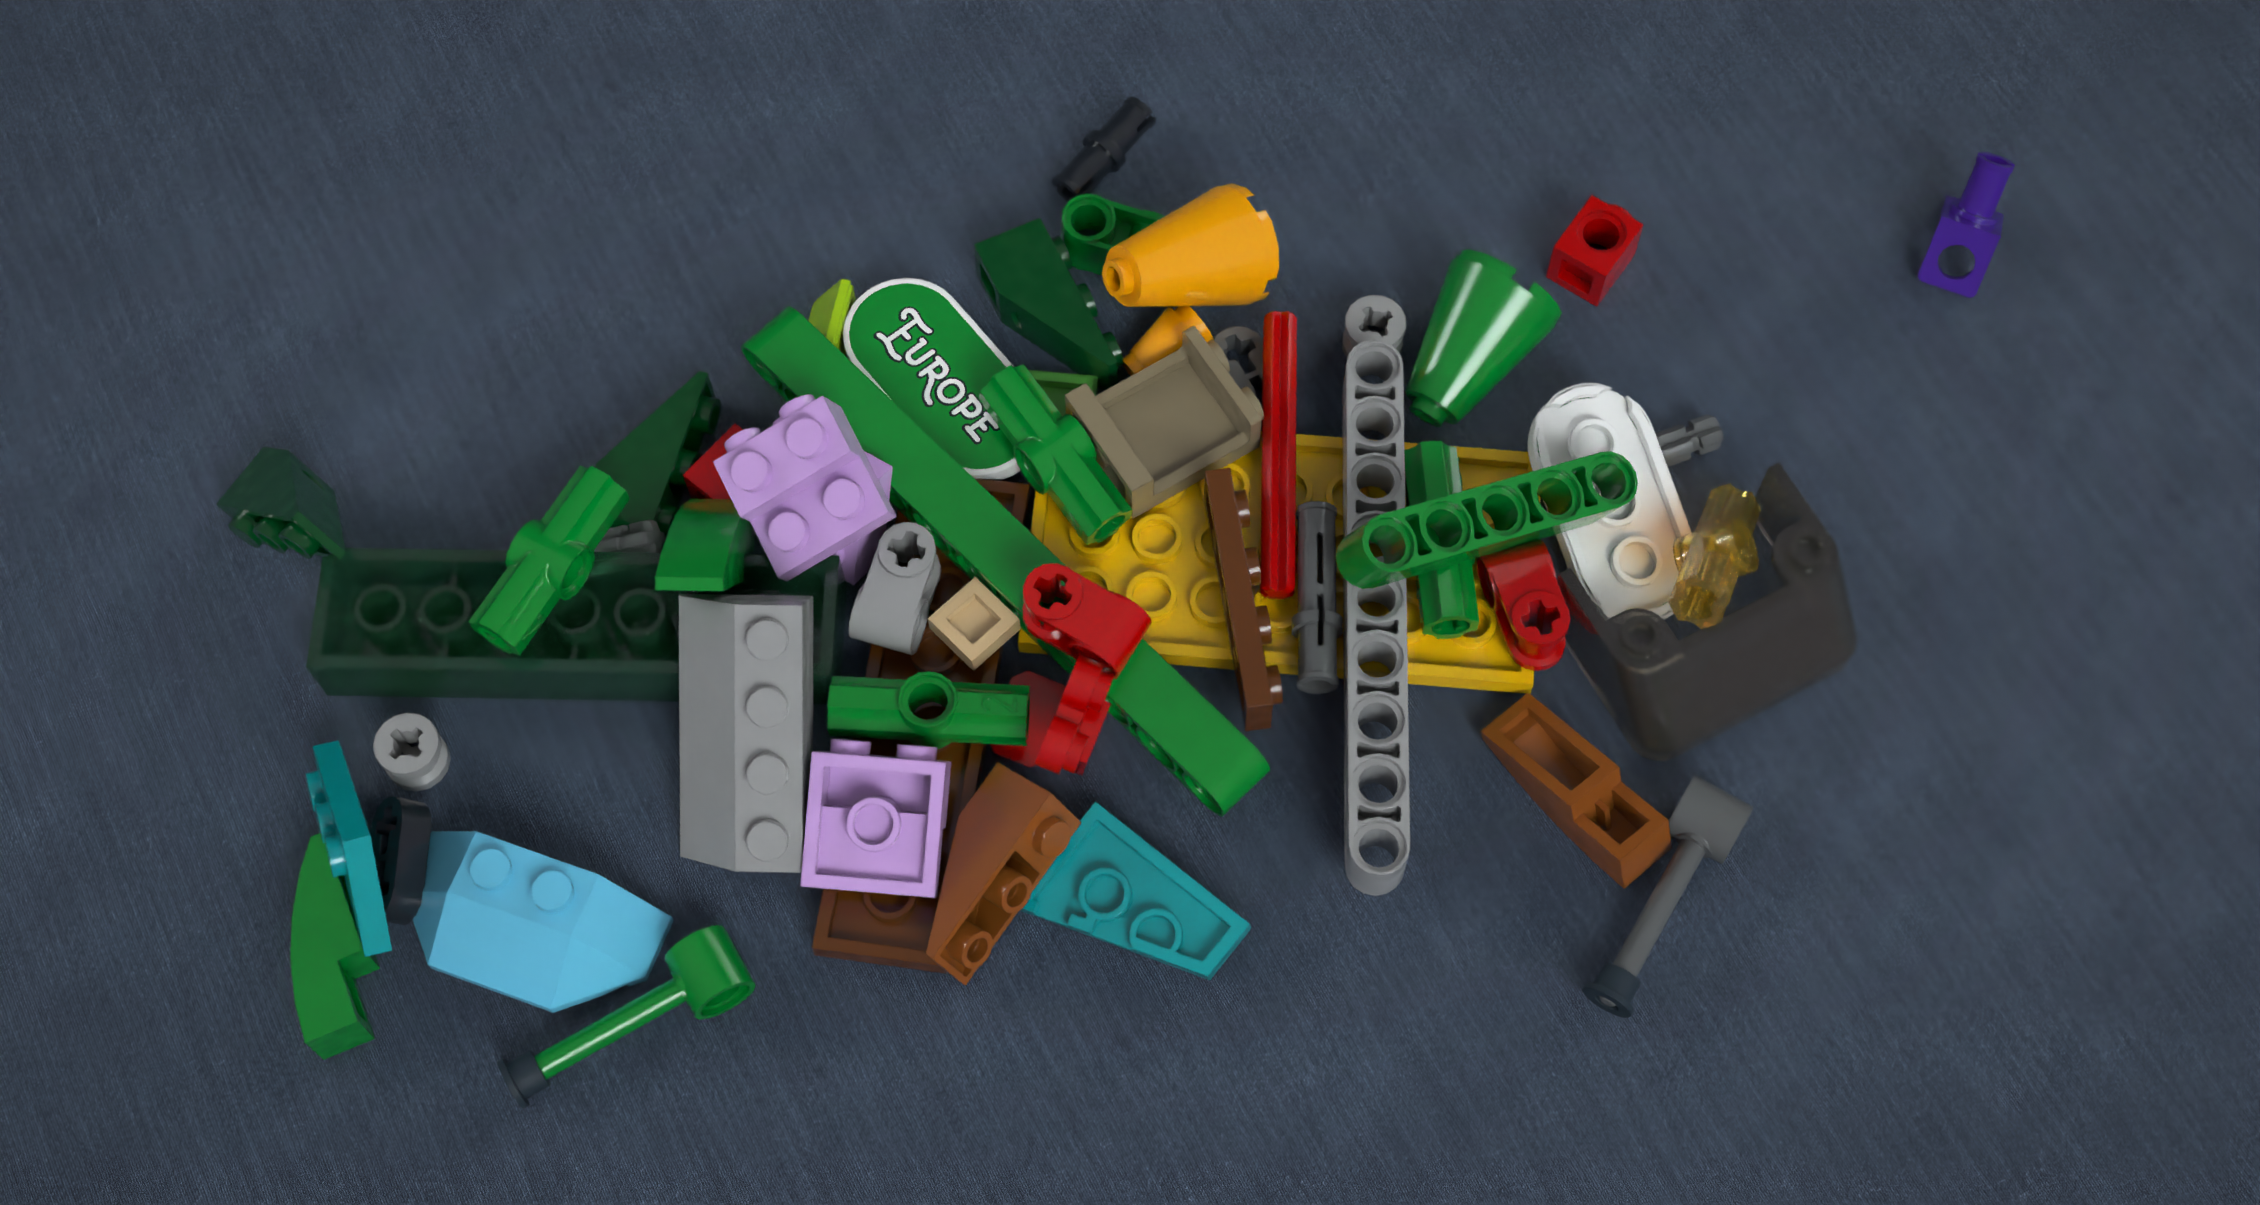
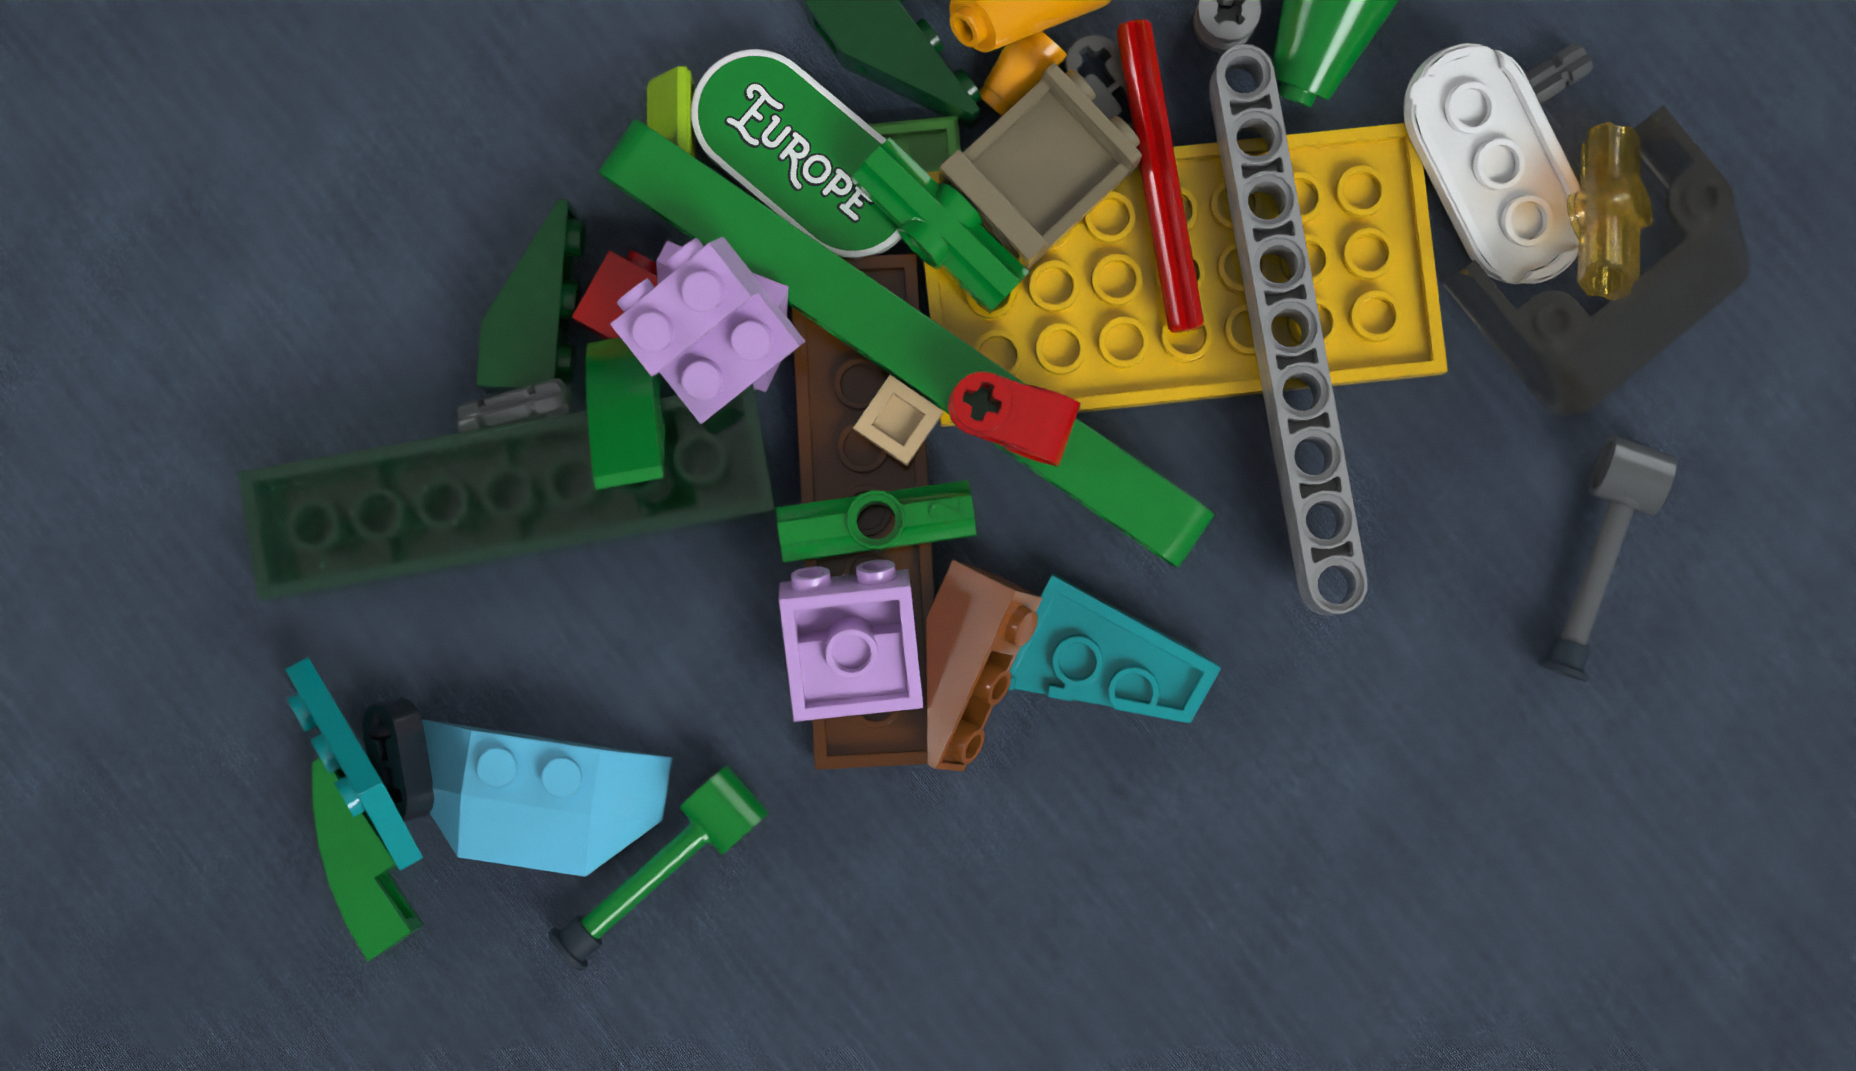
camera: 15 degrees left, 20 degrees up
(284, 507) = (185, 432): dark green slope -> none
(420, 765) = (391, 653): light grey wheel -> none
(549, 560) = (470, 450): green piece -> none
(745, 729) = (707, 583): light grey slope -> none
(896, 599) = (813, 415): light grey piece -> none
(1062, 718) = (1005, 503): red piece -> none
(1246, 624) = (1144, 318): reddish brown plate -> none
(1317, 622) = (1226, 326): dark grey pin -> none
(1445, 594) = (1339, 244): green piece -> none
(1465, 533) = (1364, 234): green beam -> none
(1526, 603) = (1428, 285): red piece -> none
(1579, 790) = (1503, 466): dark orange slope -> none

